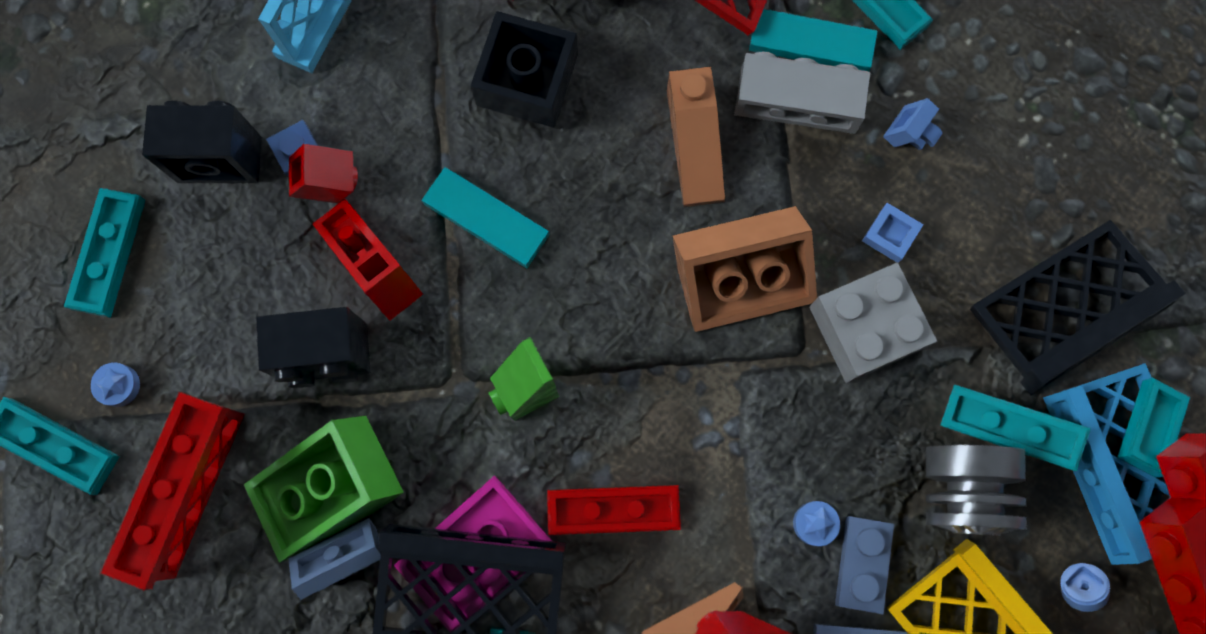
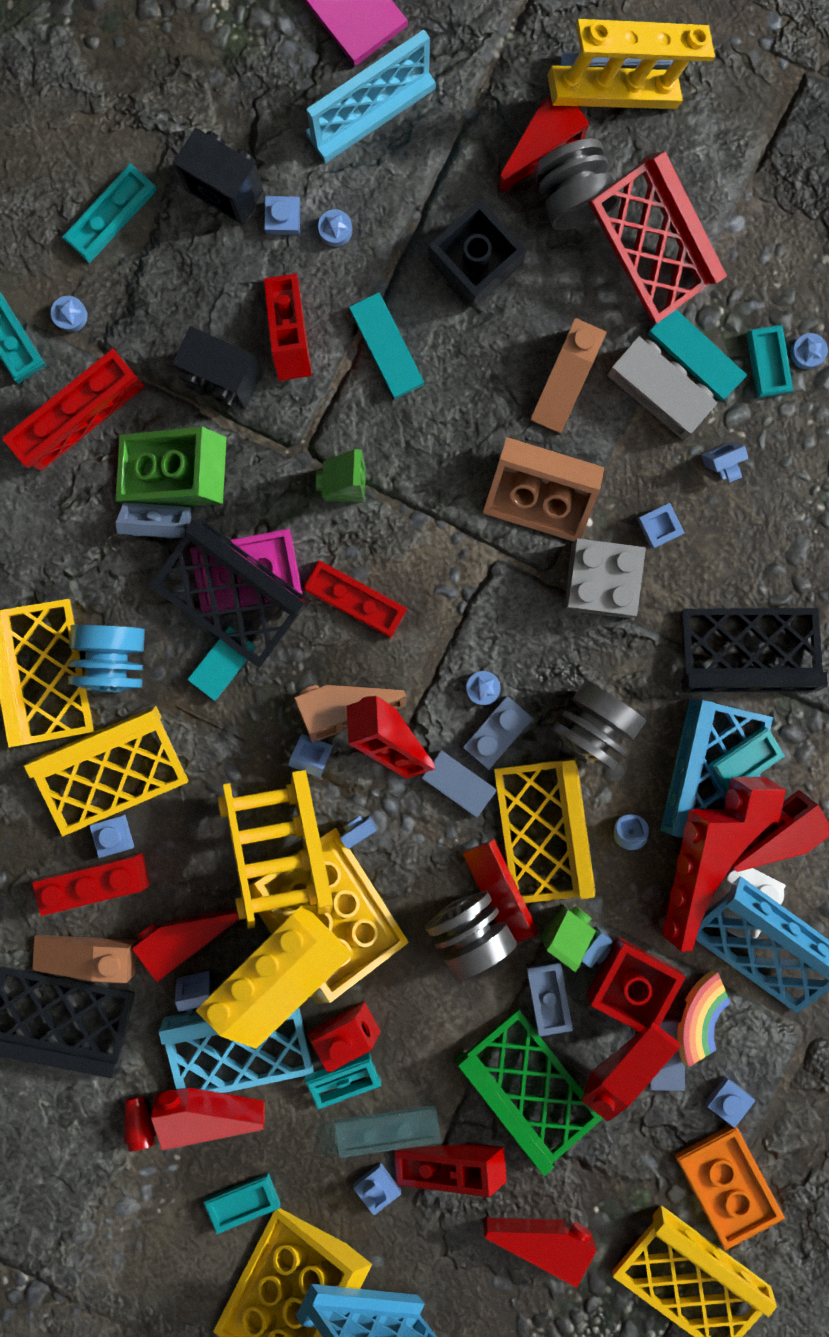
camera: 30 degrees right, 10 degrees up
(321, 173) = (290, 246): red brick -> none
(359, 129) = (335, 228): none -> medium blue tile
(1015, 427) = (653, 703): teal tile -> none

